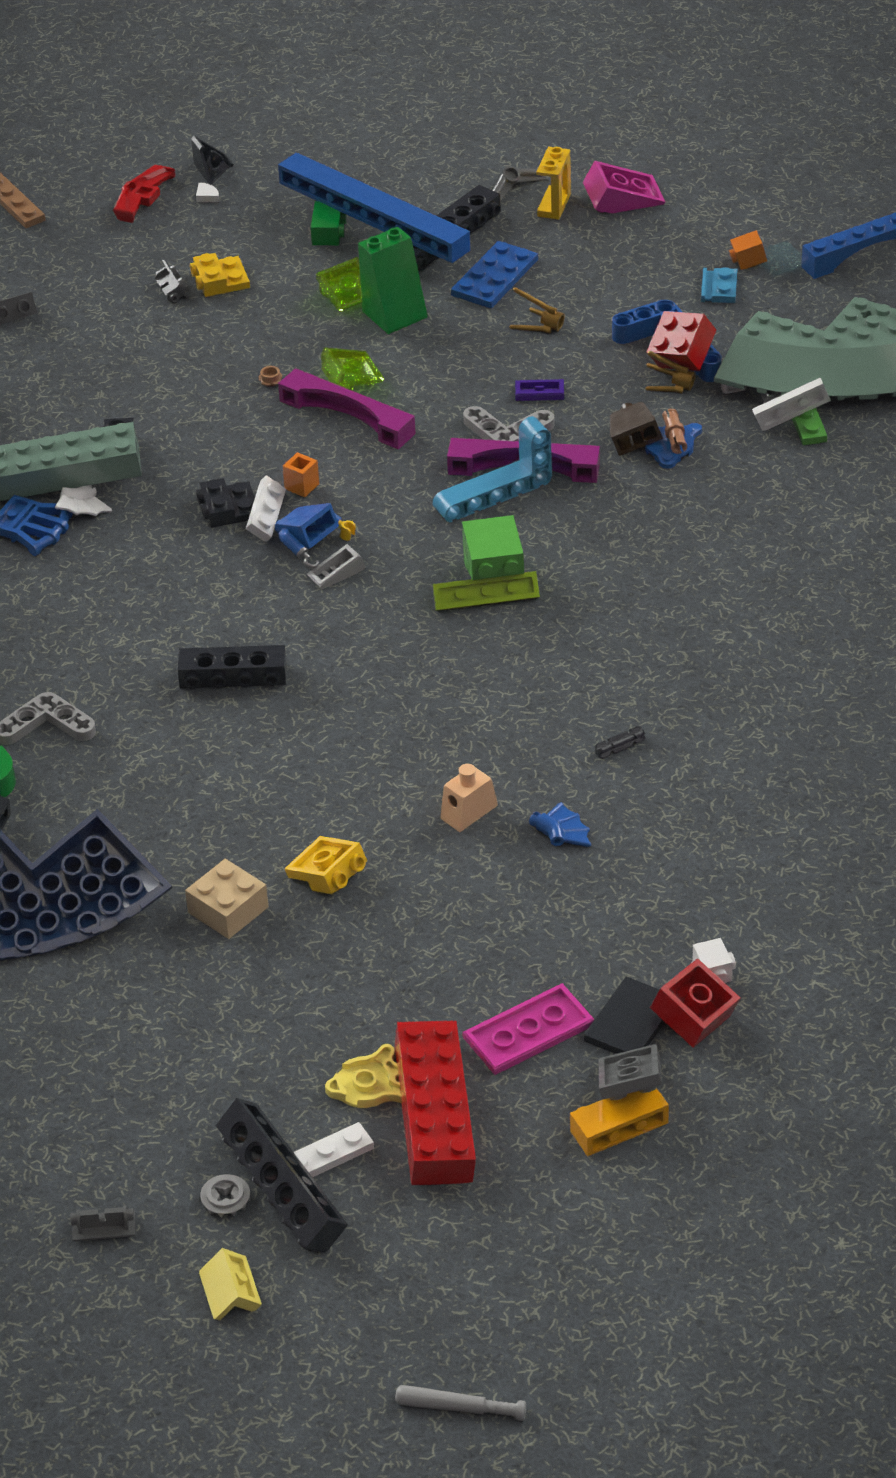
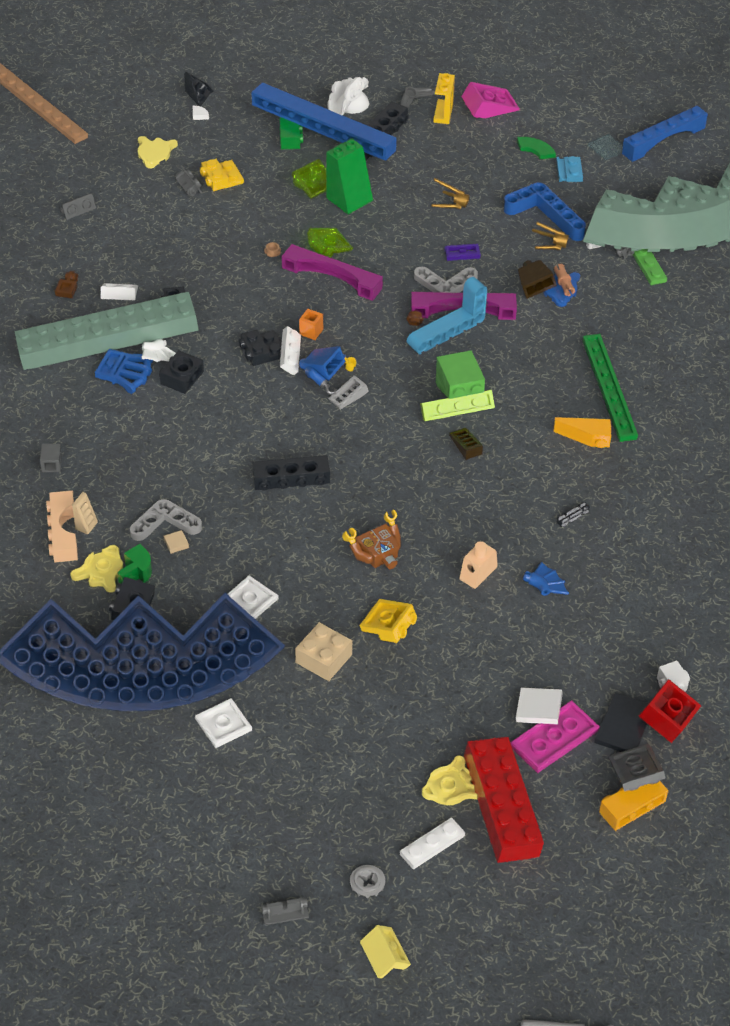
camera: 10 degrees left, 5 degrees up
(44, 422) = (119, 291): none -> white slope
(55, 748) = (176, 541): none -> tan tile
(71, 982) = (223, 723): none -> white tile
(108, 529) = (181, 372): none -> black brick
(131, 241) = (154, 151): none -> light yellow tile
(141, 191) = (153, 113): red plate -> none
(145, 825) = (253, 596): none -> white tile
(281, 1176) = (445, 897): black brick -> none
(331, 767) = (378, 545): none -> dark orange torso
(421, 176) = (348, 96): none -> white piece
(451, 474) = (414, 318): none -> reddish brown plate
(489, 642) = (467, 452): none -> dark brown slope
(494, 274) = (413, 167): blue plate -> none
(513, 987) = (539, 706): none -> white tile
(660, 632) = (584, 430): none -> light orange slope
(677, 253) = (536, 146): none -> green tile
(682, 339) = (558, 212): red brick -> none
(710, 578) = (610, 388): none -> green plate
(747, 250) = (585, 143): orange brick -> none
(791, 404) = (640, 257): white plate -> none

